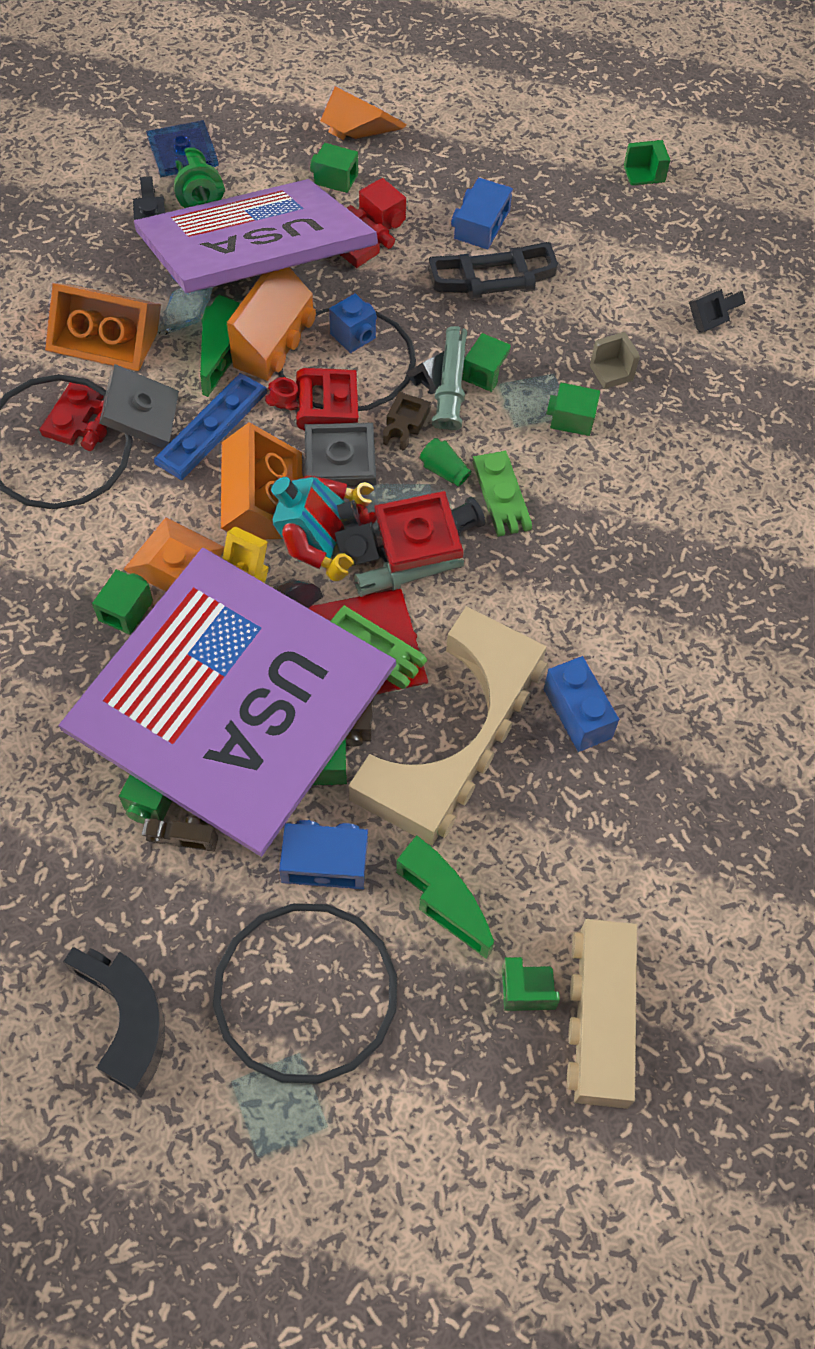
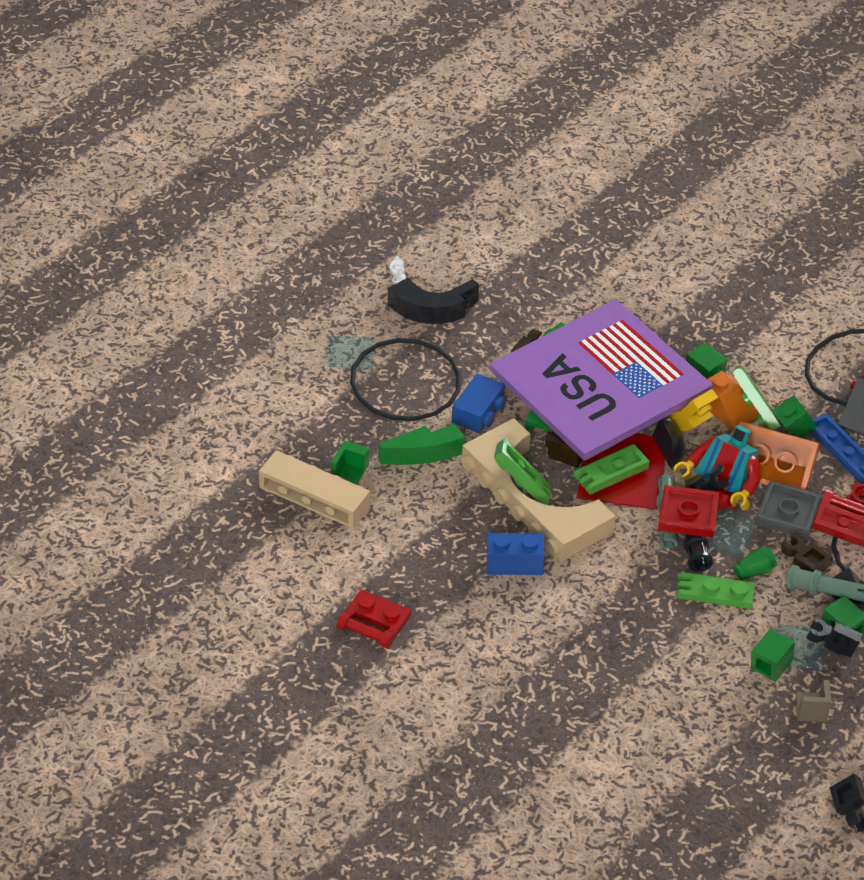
camera: 115 degrees right, 15 degrees down
(52, 1115) = (397, 270): none -> white piece
(185, 515) = (754, 397): none -> hinge
(191, 475) = (794, 417): none -> green brick
(450, 737) = (522, 471): none -> bright green hinge
(520, 360) = (837, 638): none -> black plate
(755, 836) = (377, 612): none -> red plate

